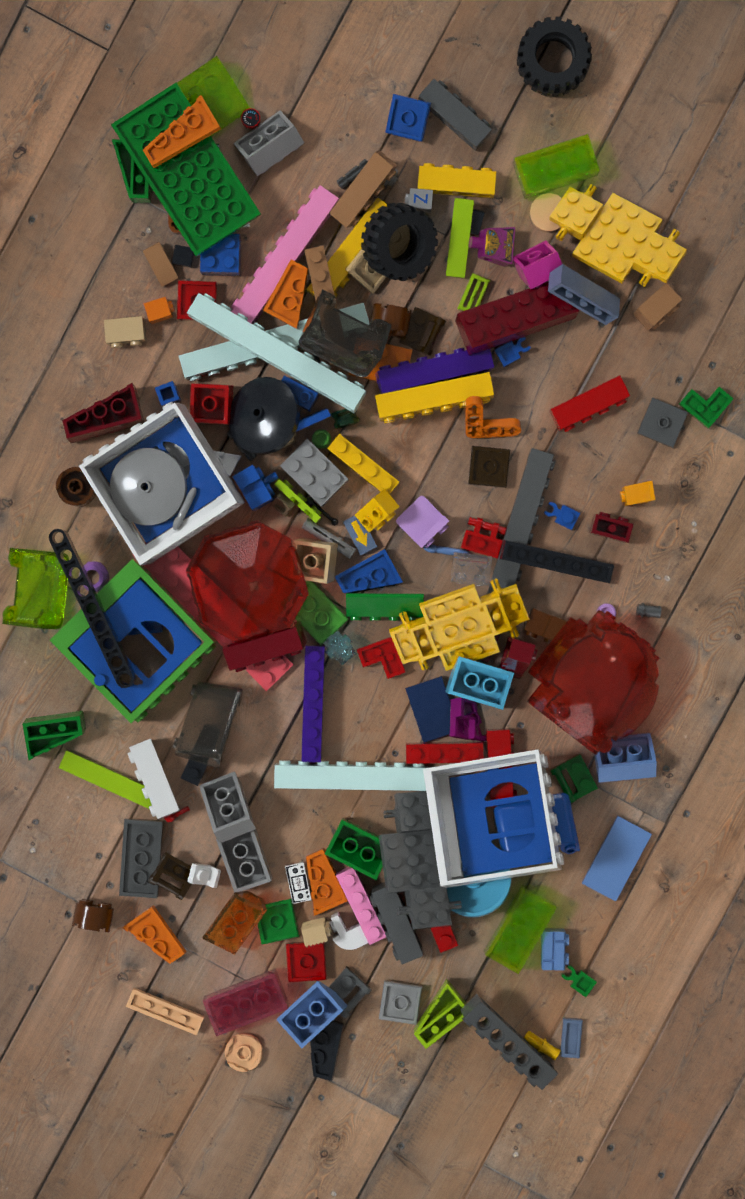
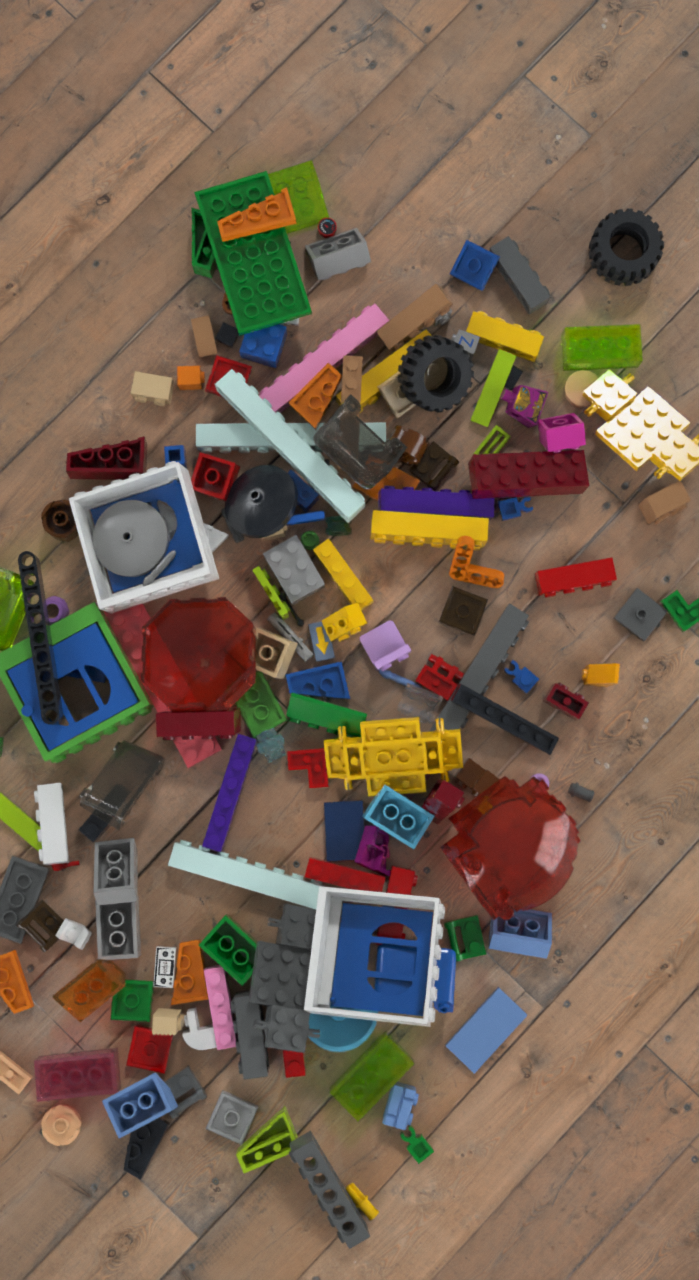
camera: 10 degrees right, 5 degrees down
(256, 486) = (234, 567): blue brick -> none
(283, 504) = (255, 592): dark tan tile -> none
(351, 175) = (397, 308): dark grey axle -> none
(571, 1037) = (393, 1201): sand blue tile -> none
(584, 294) = (598, 471): sand blue brick -> none

